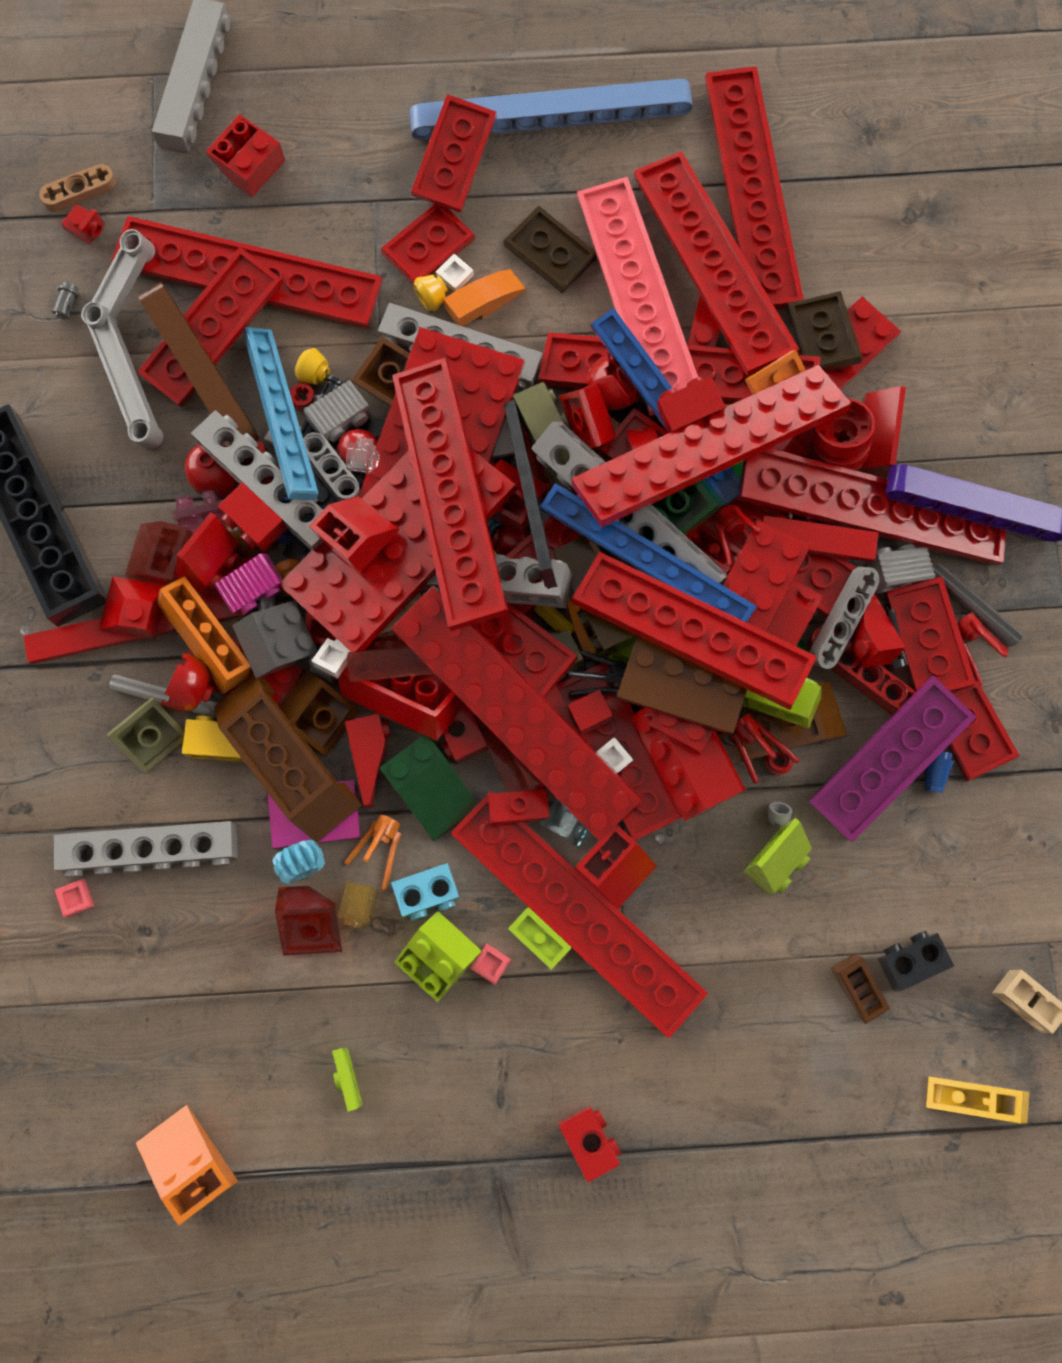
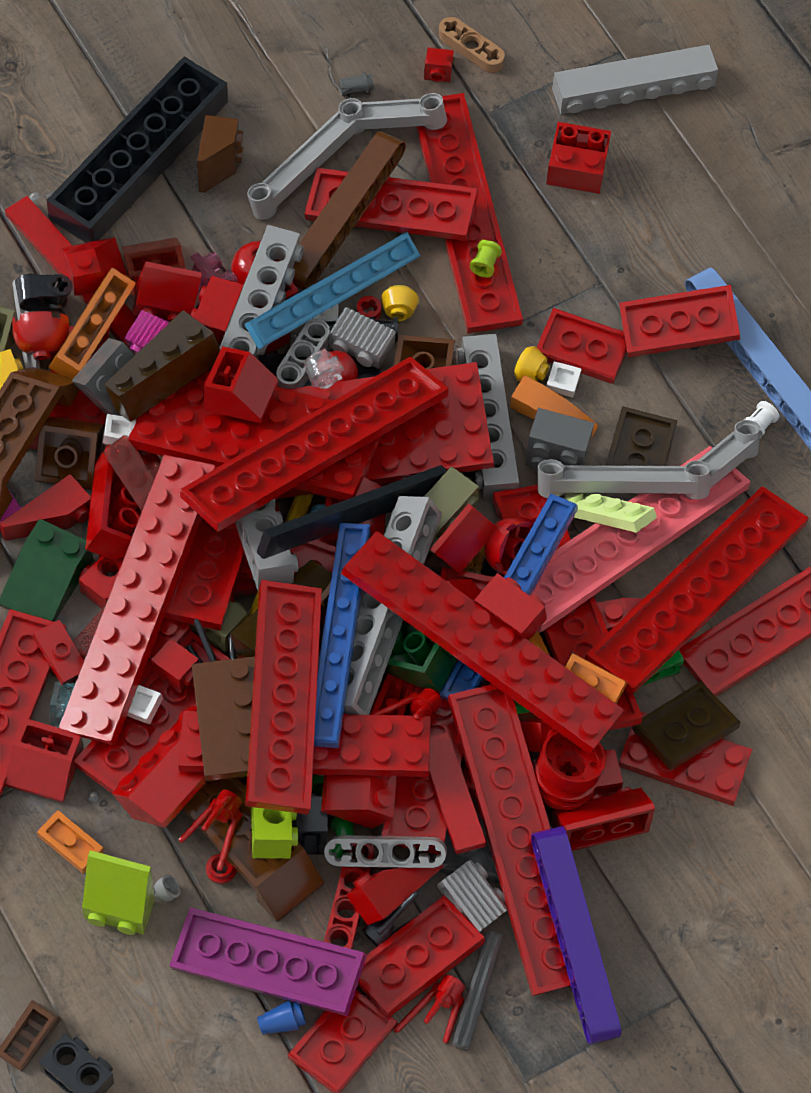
camera: 60 degrees right, 15 degrees down
(73, 444) = (219, 151): none -> reddish brown slope
(138, 664) = (39, 293): none -> black piece
(295, 587) = (163, 366): none -> dark brown wedge
(310, 275) = (485, 258): none -> lime bush
(522, 303) = (559, 439): none -> dark grey brick
(571, 142) = (764, 416): none -> white bush
(595, 249) = (692, 479): none -> light grey piece
(611, 293) = (612, 511): none -> yellowish green plate
(699, 876) = (68, 840): none -> orange plate

